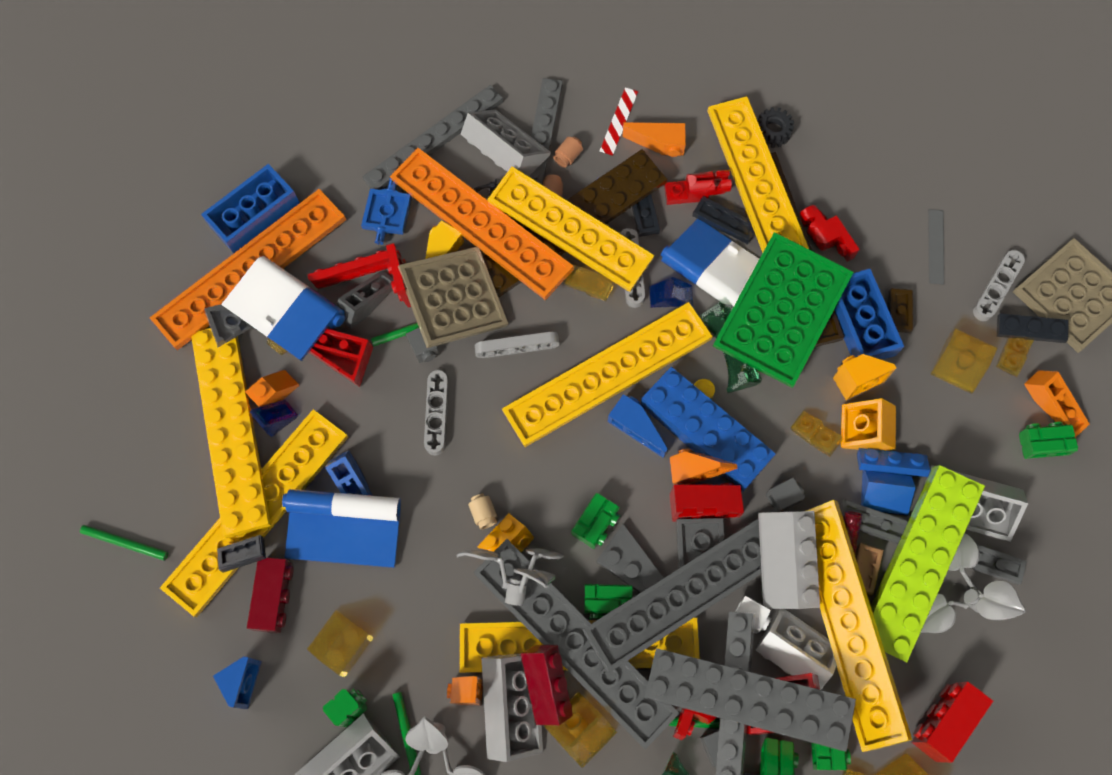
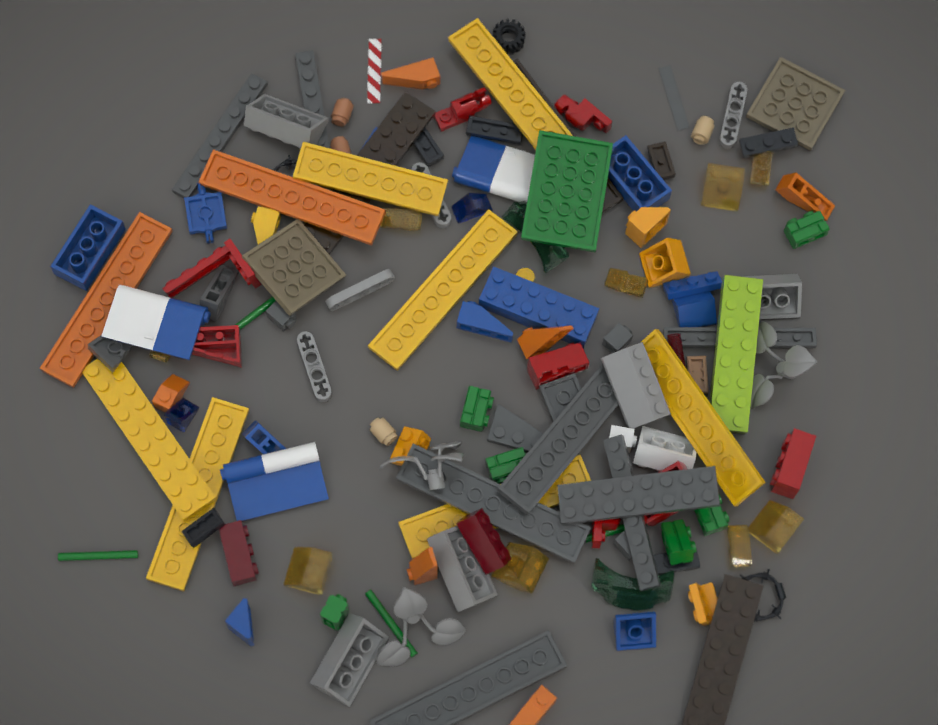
camera: 25 degrees left, 0 degrees up
(959, 291) = (702, 130): none -> tan brick

